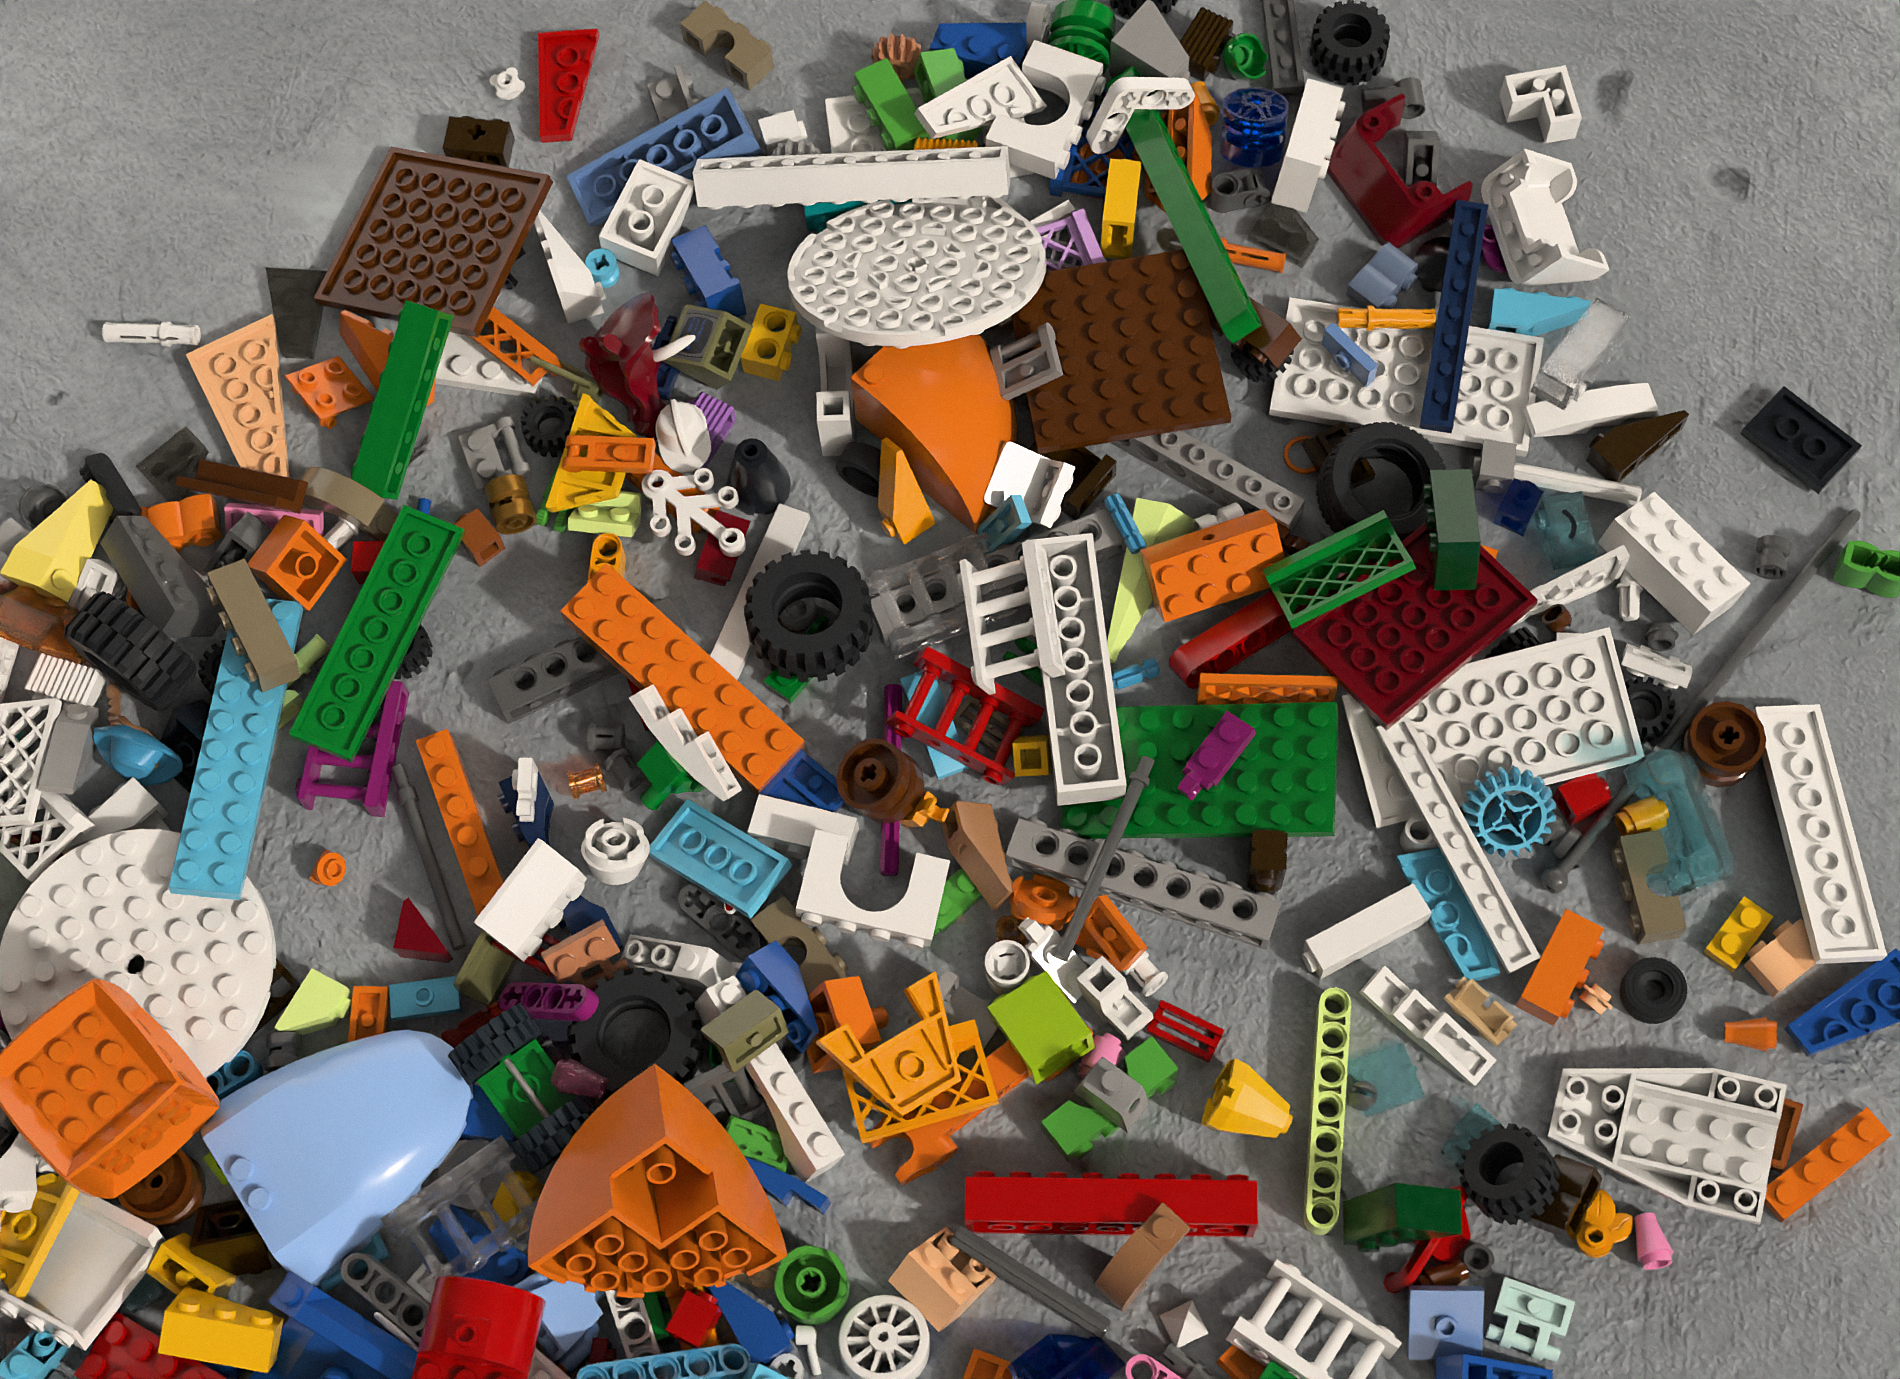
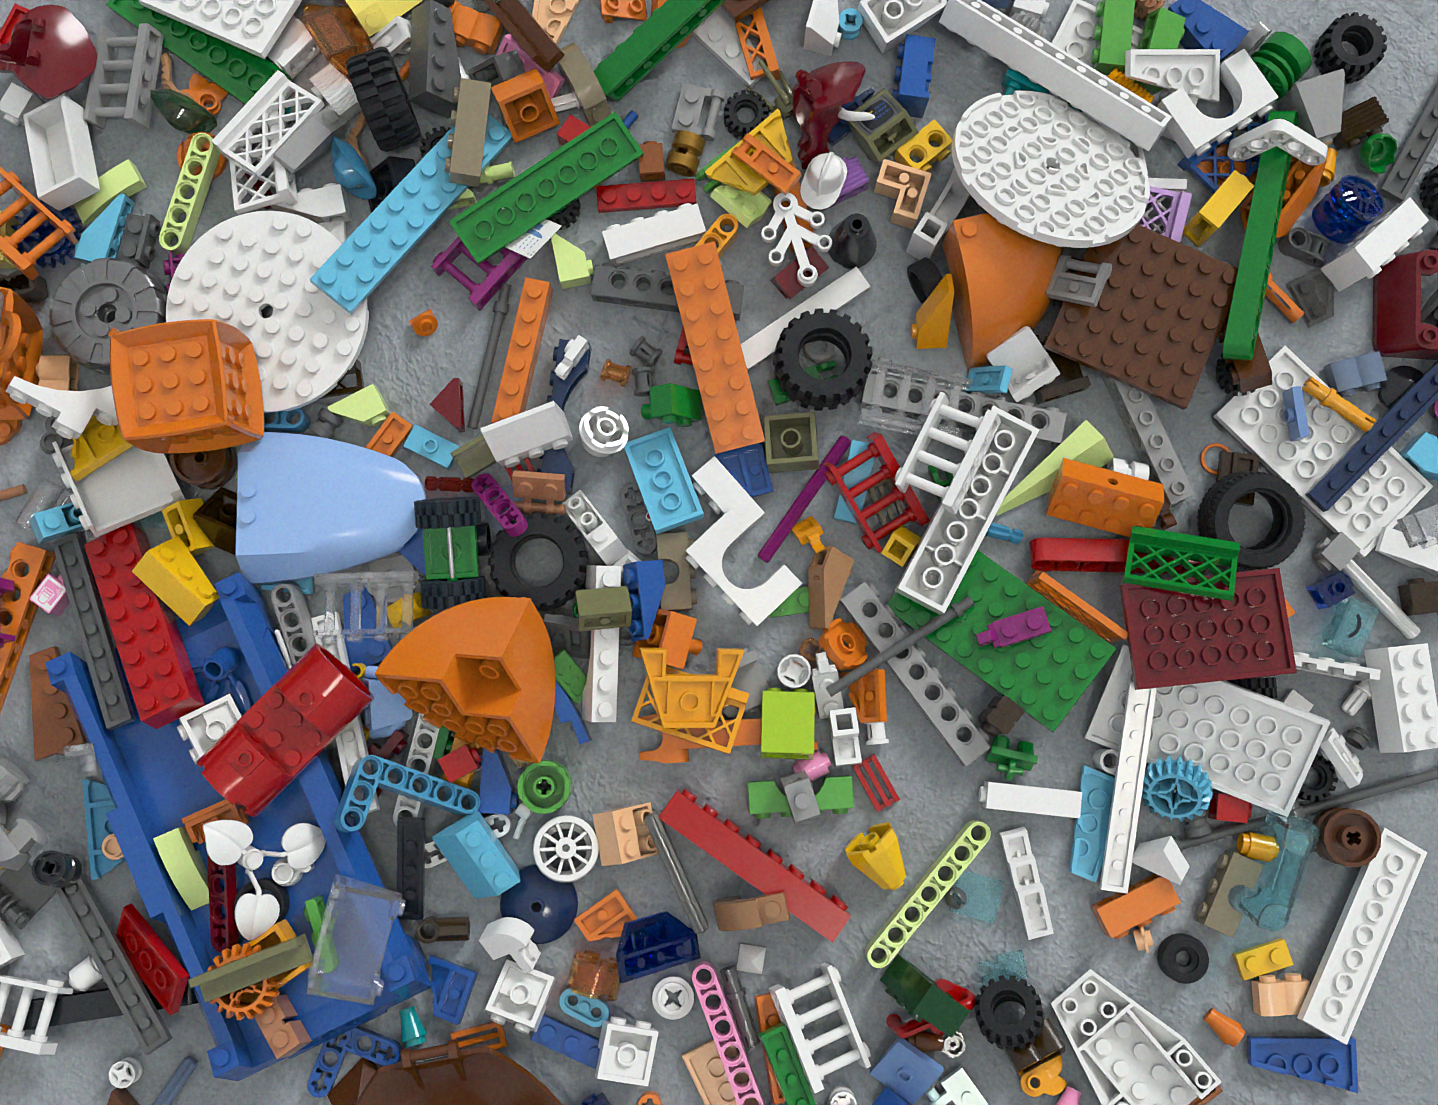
camera: 30 degrees right, 15 degrees up
(400, 693) = (534, 239): none -> white sticker
(457, 697) = (571, 263): none -> yellowish green slope
(495, 576) = (645, 195): none -> red plate
(531, 609) = (654, 234): none -> white brick
(577, 1079) = (482, 569): clear pink cone -> none
(694, 753) = (689, 405): white slope -> none
(776, 388) = (905, 185): none -> light nougat brick
(833, 723) = (791, 442): none -> olive brick
(880, 781) = (794, 499): reddish brown wheel -> none
(1125, 523) = (1066, 432): dark azure axle -> none
(1313, 903) = (1011, 761): none -> green hips
(1453, 528) = (1277, 589): dark green wedge -> none
(1491, 1023) = (1064, 886): tan hinge -> none
(1551, 895) = (1162, 858): none -> white slope
(1557, 618) = (1305, 678): reddish brown hinge -> none

